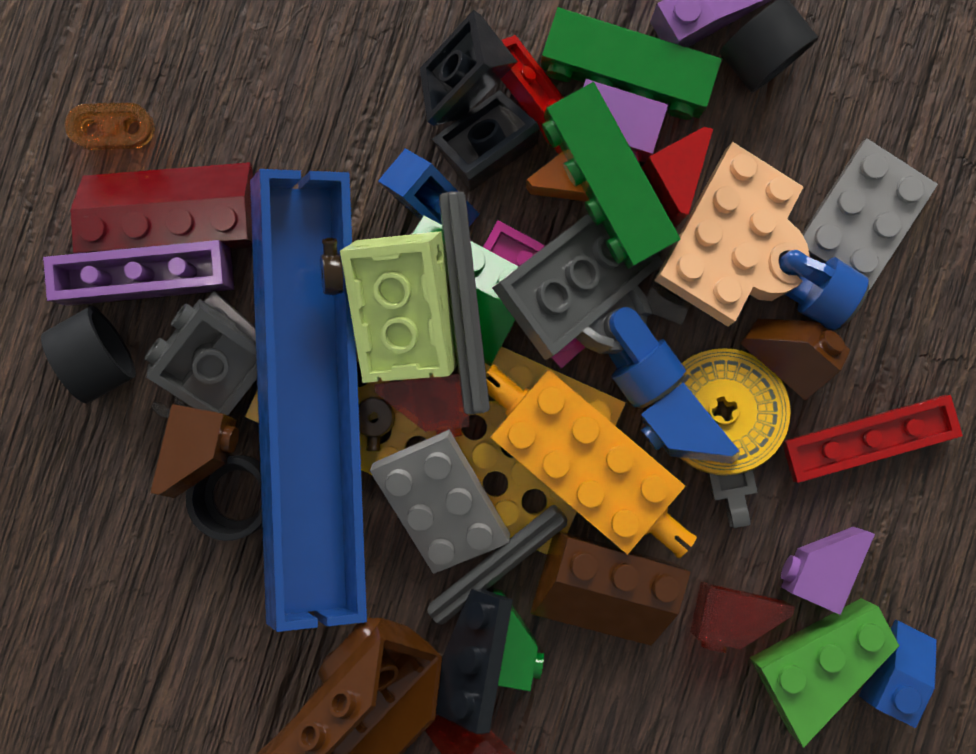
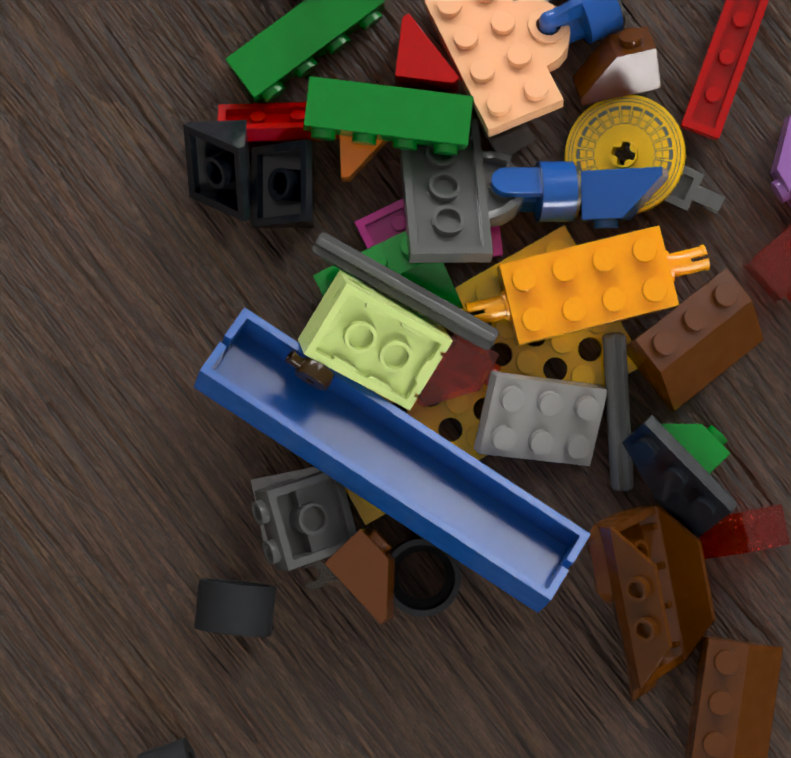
camera: 60 degrees left, 0 degrees up
(112, 126) = (63, 468): clear orange plate -> none
(138, 273) = (198, 525): medium lavender brick -> none
(163, 208) = (160, 472): dark red slope -> none
(375, 430) = (450, 422): dark brown piece -> none
(419, 186) = (287, 263): blue slope -> none
(636, 117) = (350, 61): medium lavender slope -> none

